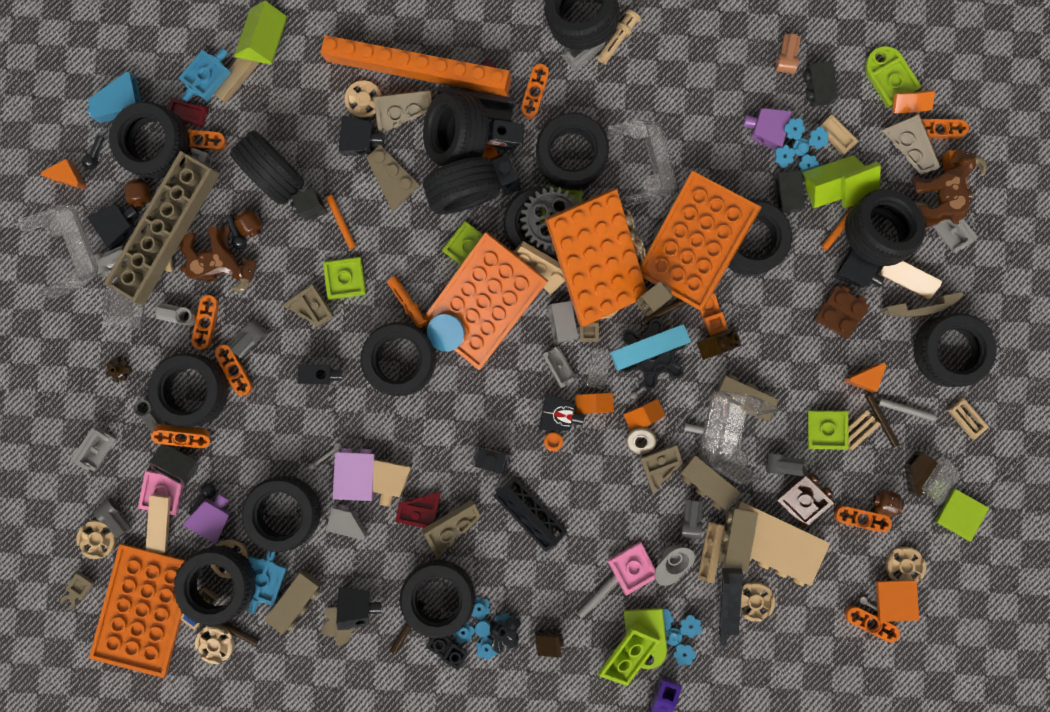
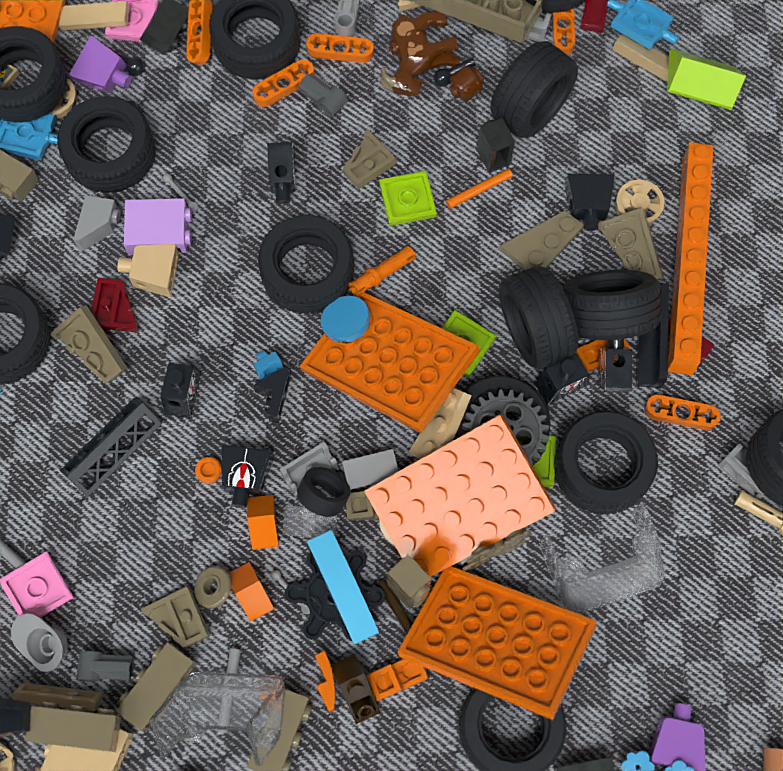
camera: 85 degrees right, 15 degrees down
(477, 393) = (267, 364): none -> dark azure tile
(494, 386) = (275, 387): none -> black slope
(572, 349) = (317, 502): none -> black tyre
(717, 363) = (327, 688): none -> orange slope

